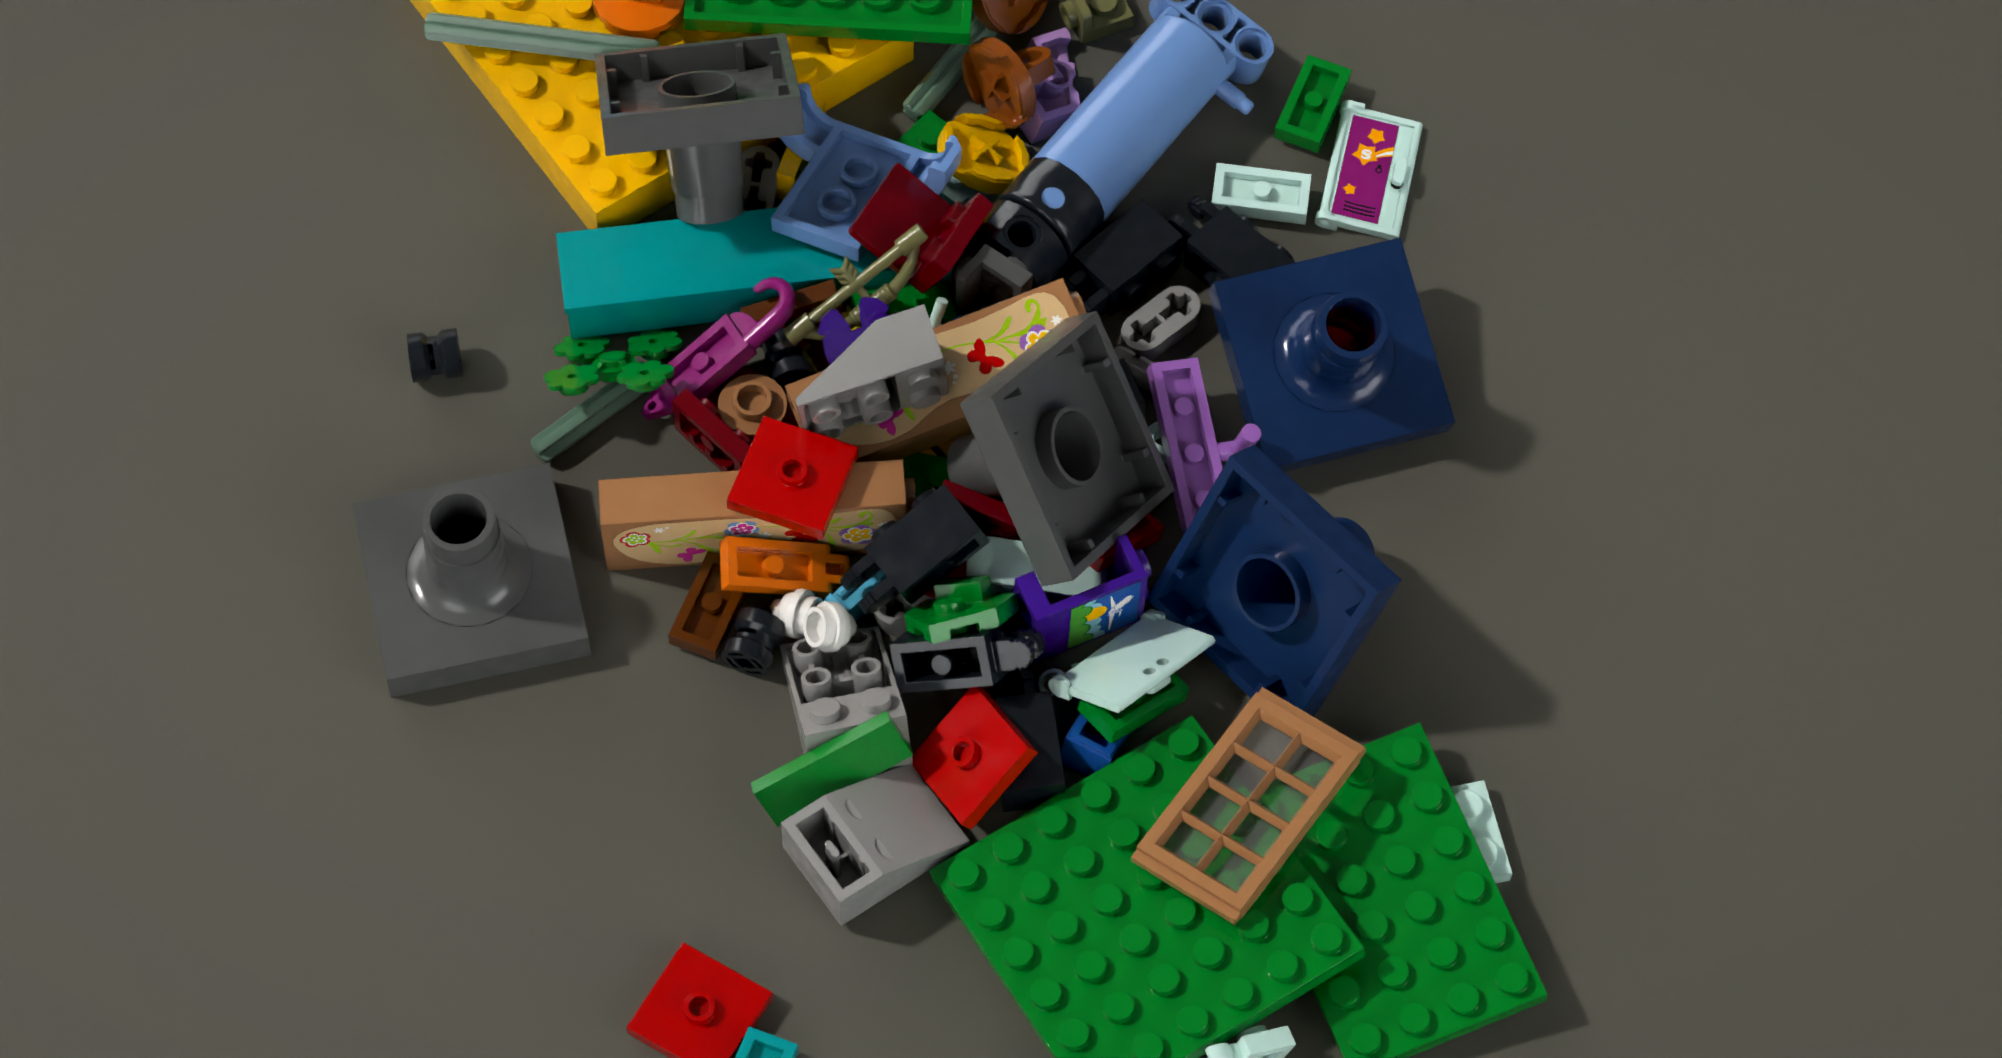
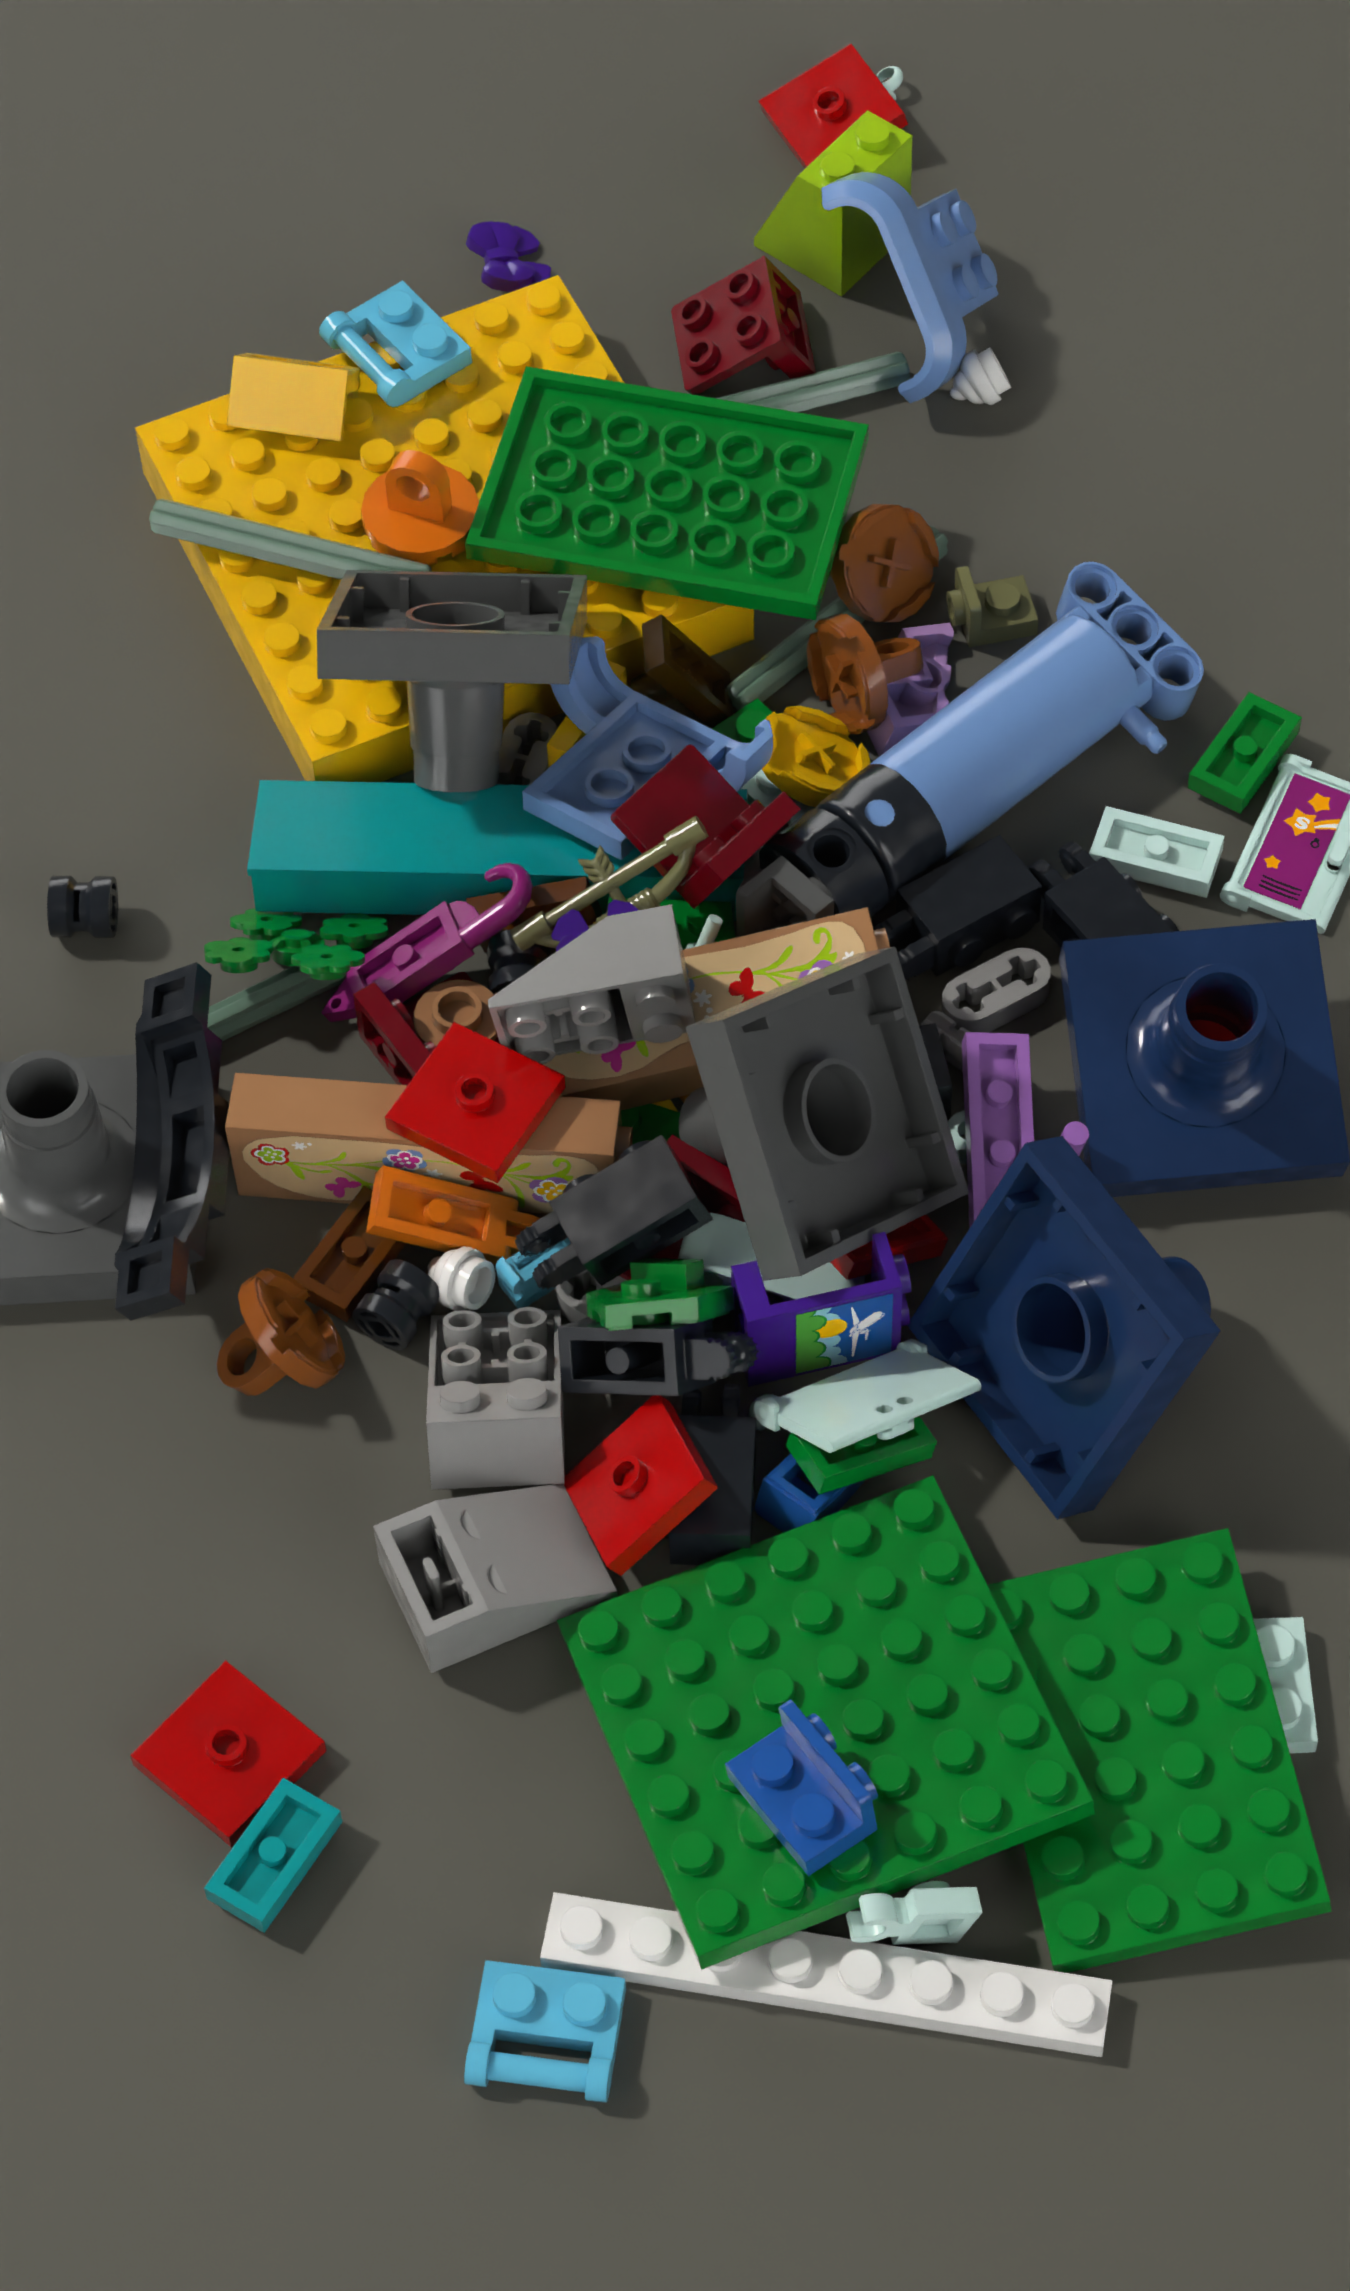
camera: 15 degrees right, 5 degrees down
(560, 544) = (178, 1144): none -> black piece
(676, 680) = (285, 1334): none -> dark orange tile
(828, 626) = (491, 1297): white plate -> none
(832, 766) = (466, 1464): green tile -> none
(869, 98) = (682, 671): none -> dark brown tile
(1151, 974) = (806, 1789): none -> blue bracket
(1248, 805) = (977, 1596): medium nougat piece -> none

